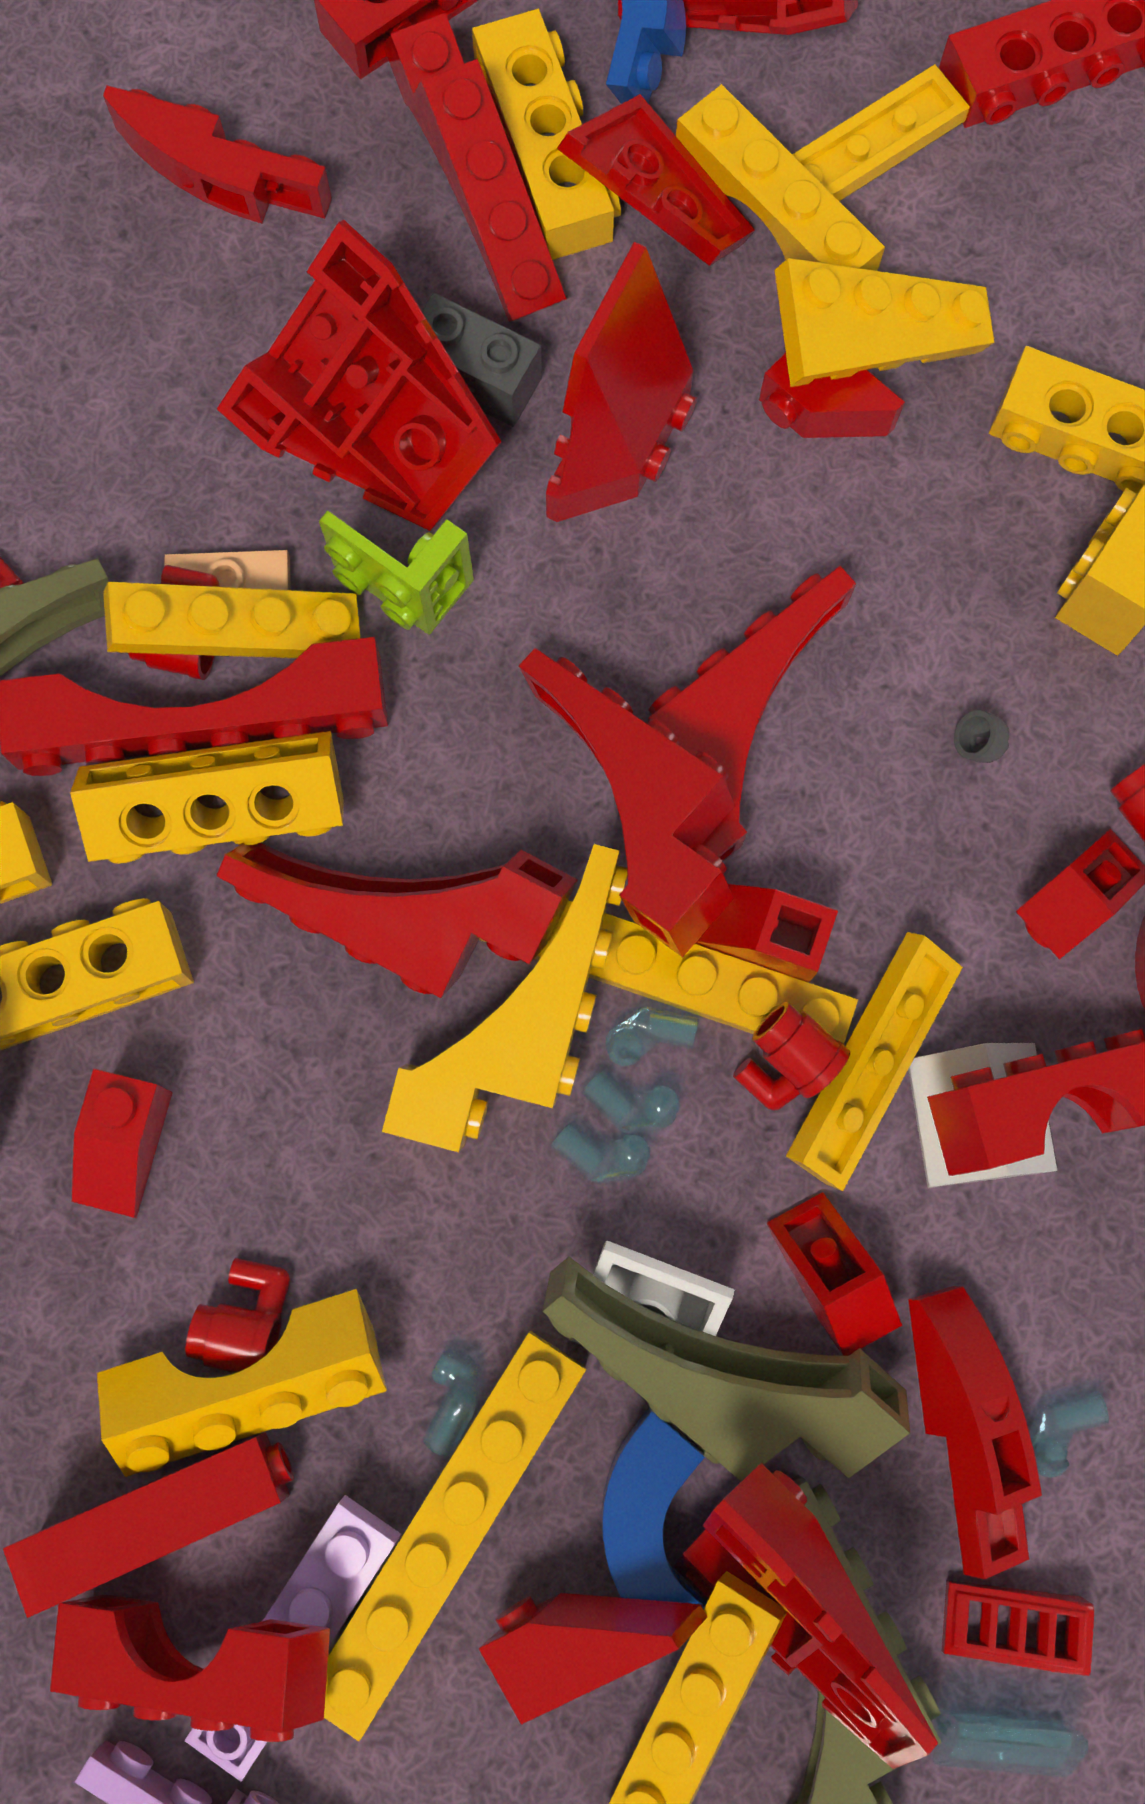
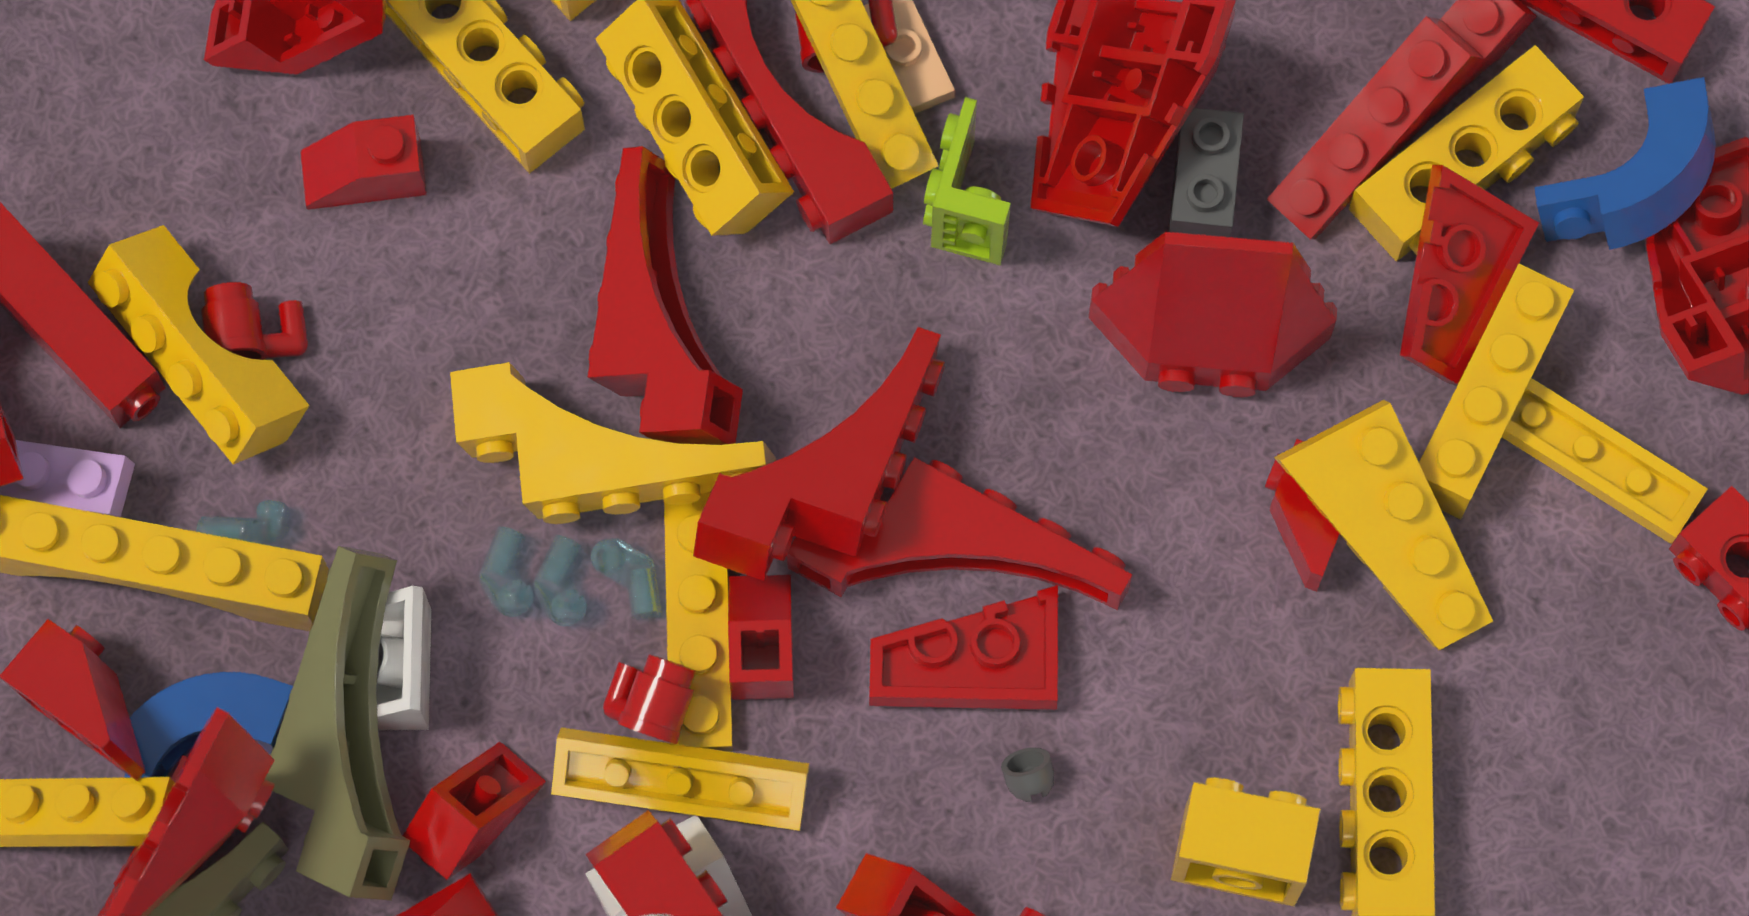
camera: 70 degrees right, 5 degrees down
(855, 744) = (976, 661): none -> red wing

